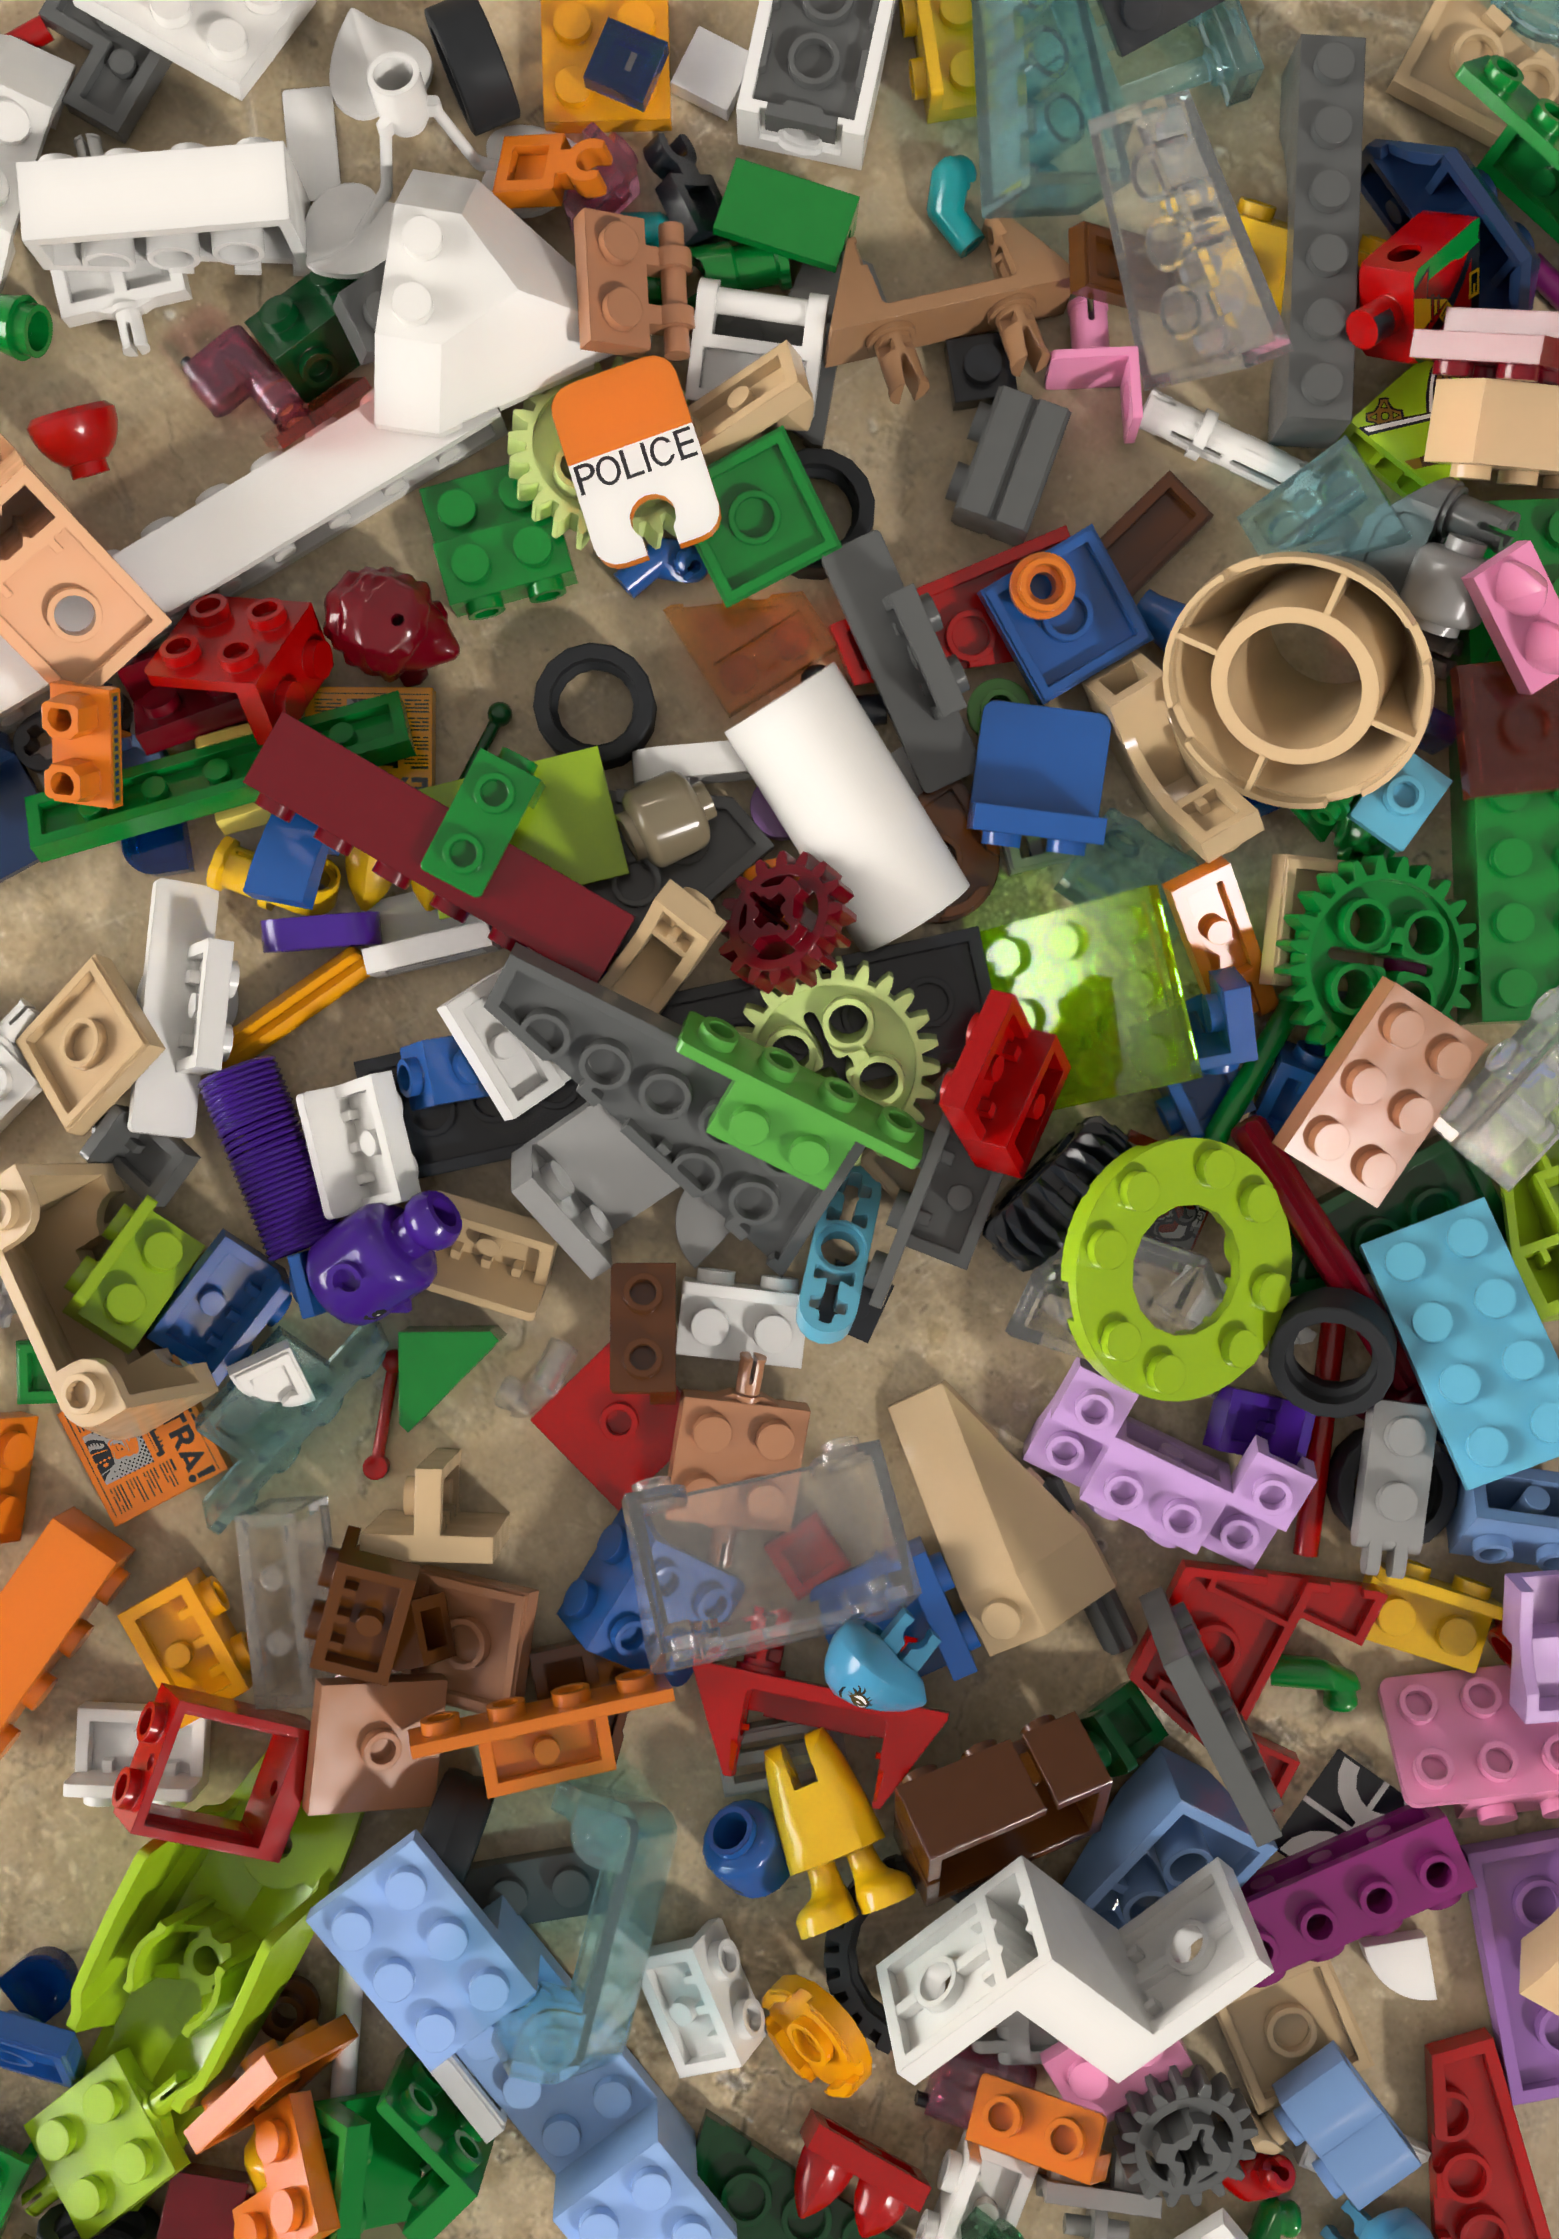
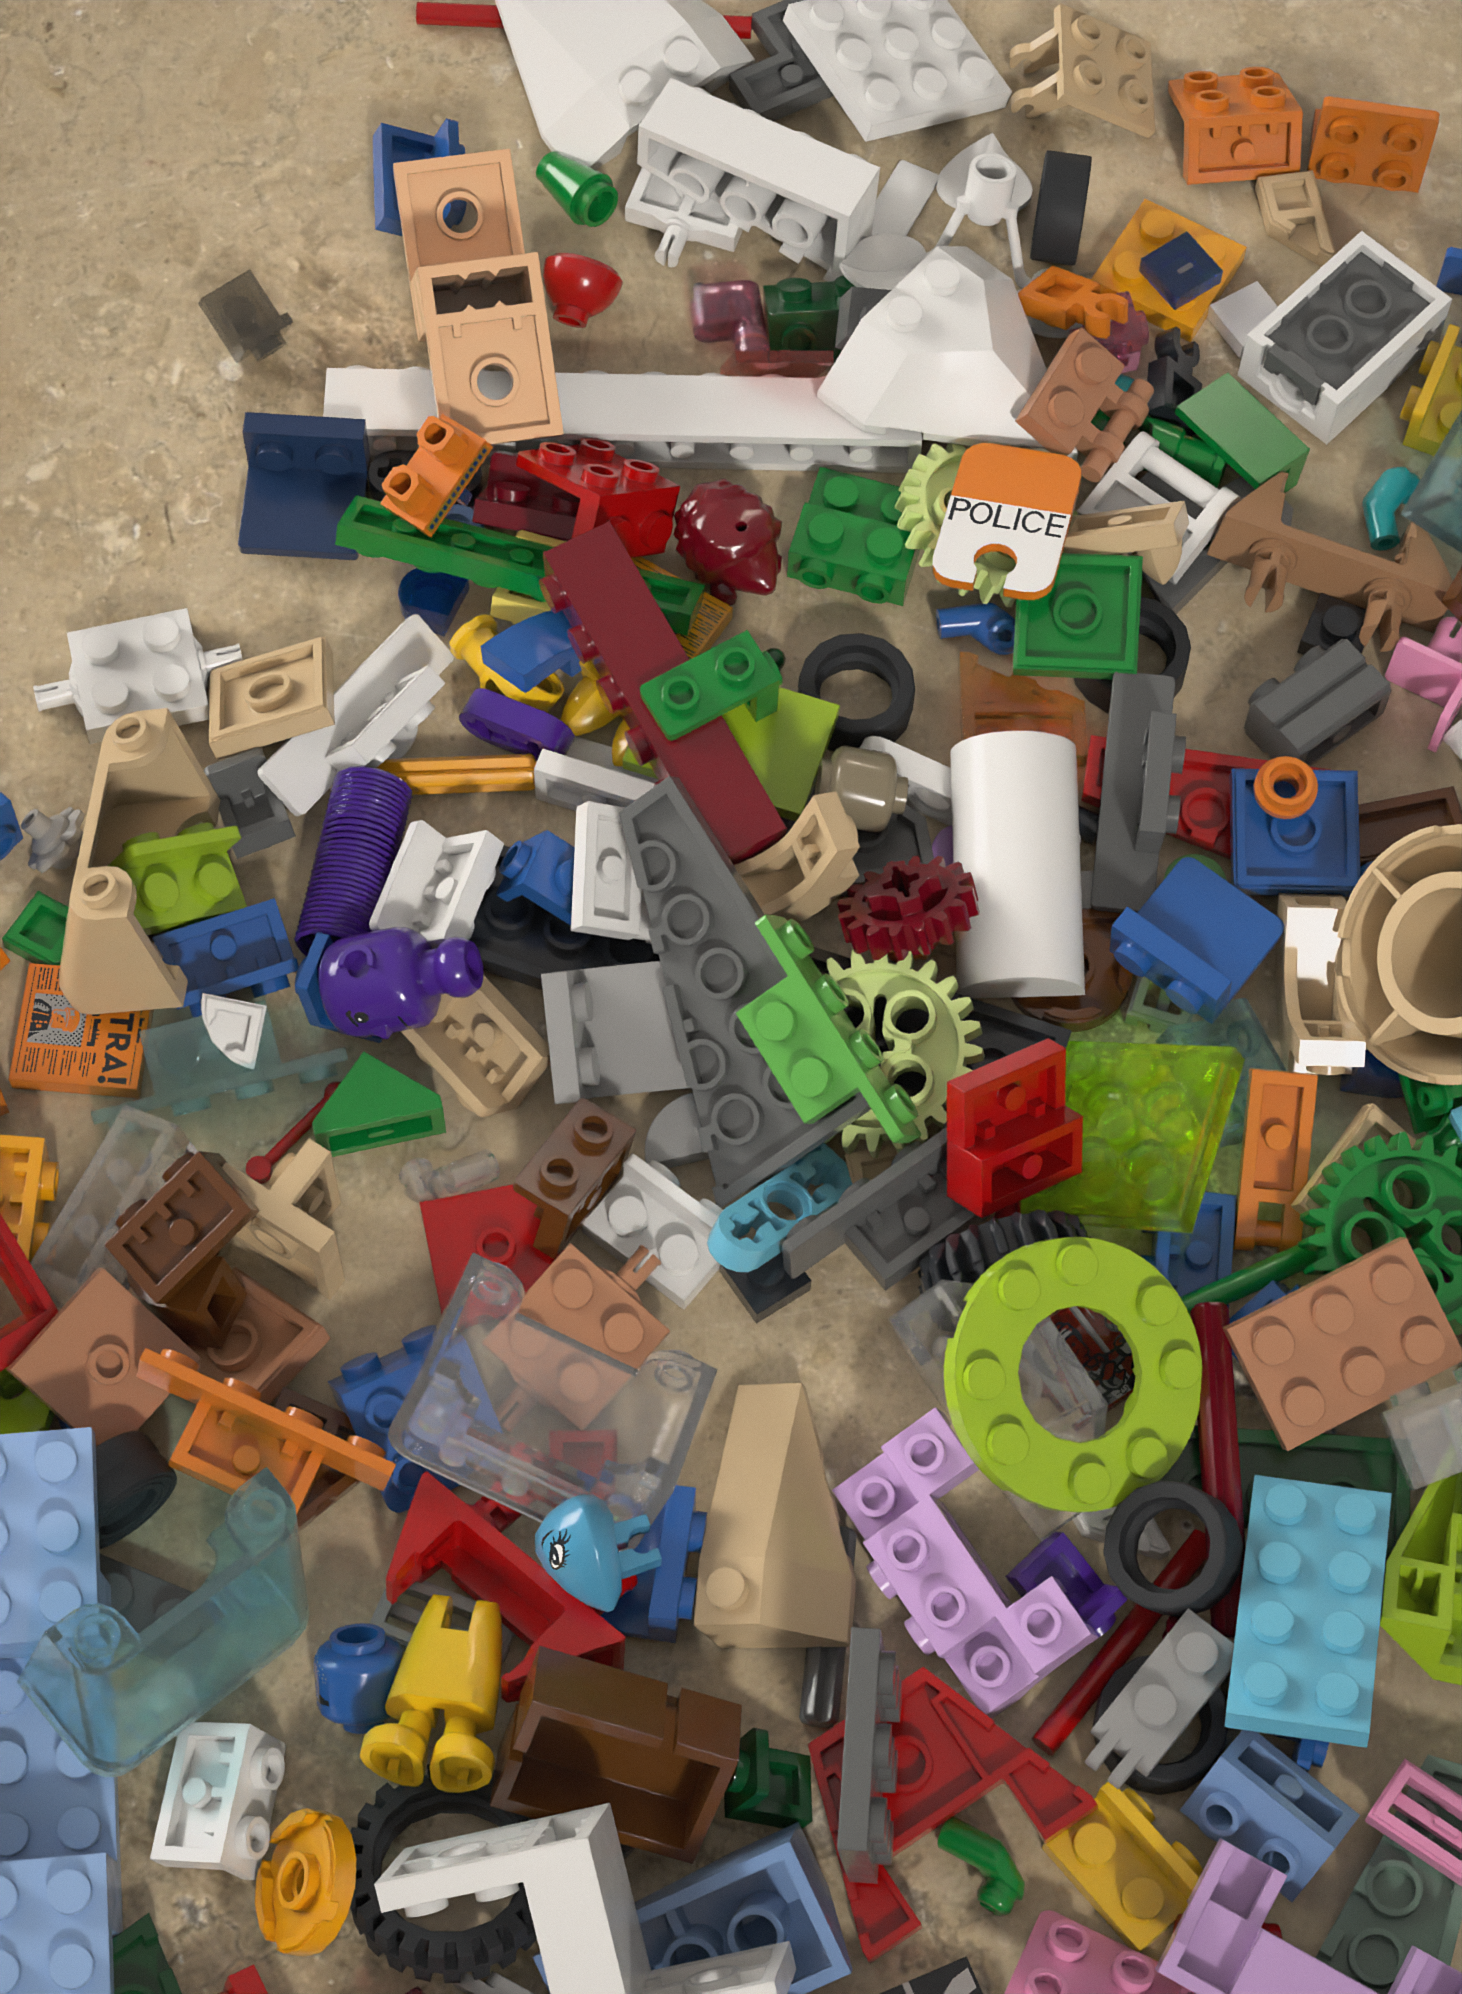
camera: 25 degrees right, 25 degrees down
(1229, 1024) = (1246, 1204): blue bracket -> none

